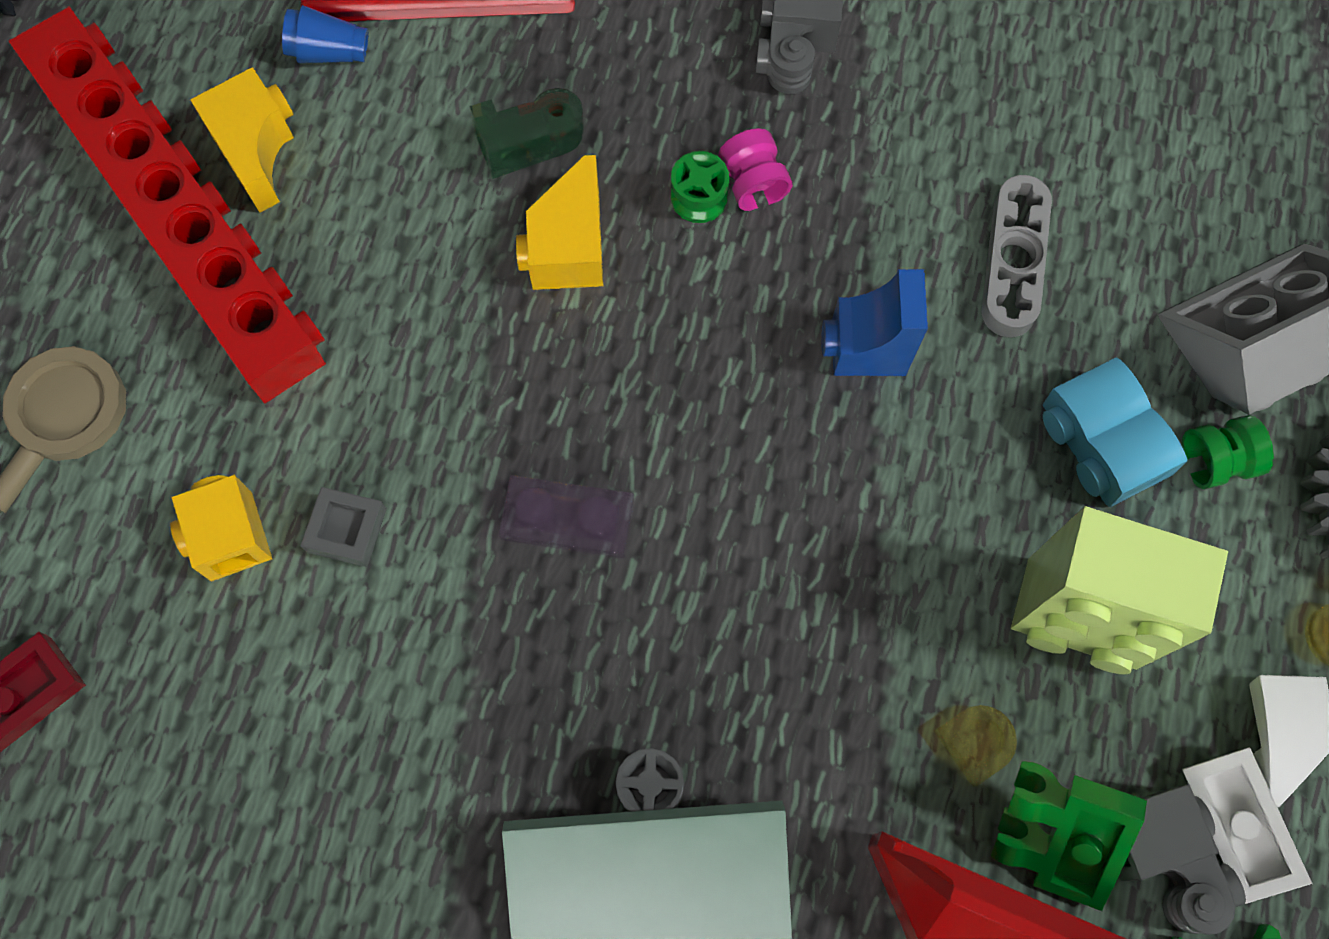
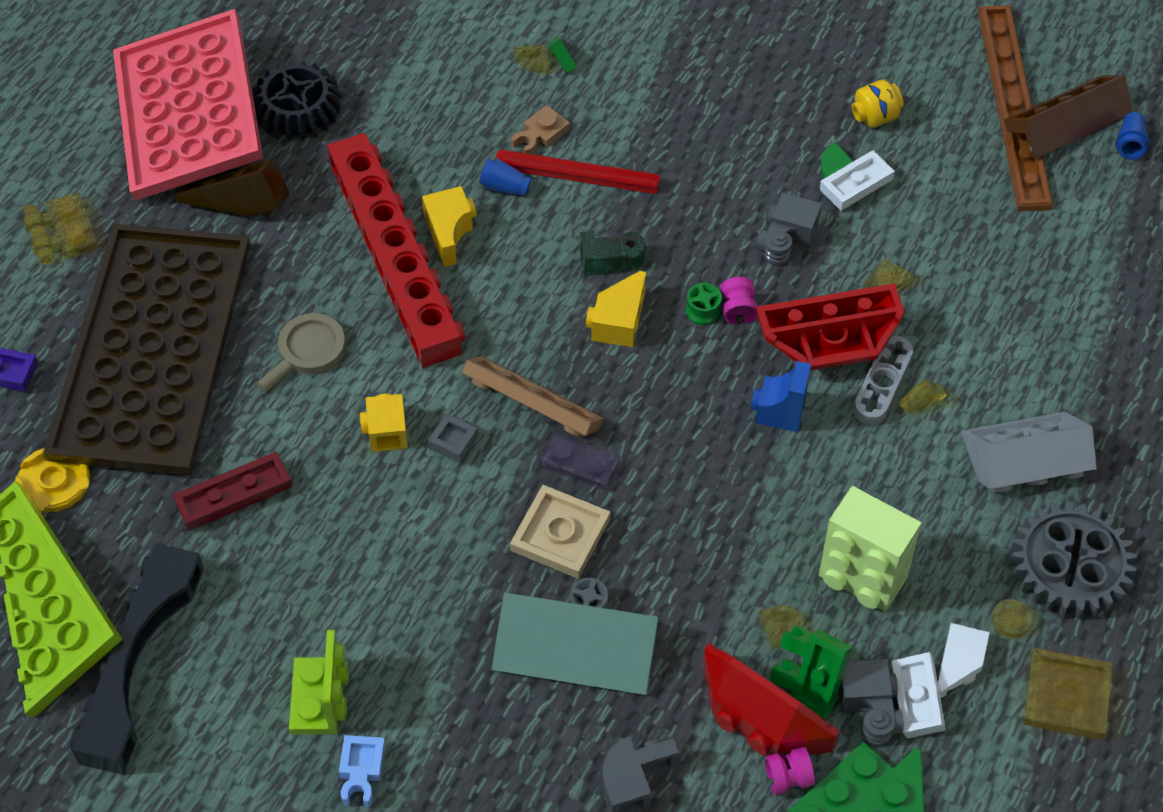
camera: 15 degrees right, 15 degrees down
(461, 417) = (490, 375): none -> medium nougat plate
(567, 661) = (560, 531): none -> tan plate
(925, 185) = (833, 326): none -> red wedge
(973, 76) = (889, 273): none -> clear yellow tile
(1086, 271) = (922, 396): none -> clear yellow tile
(1112, 432) = (908, 481): medium azure brick -> none
(1236, 449) = (973, 508): green wheel -> none

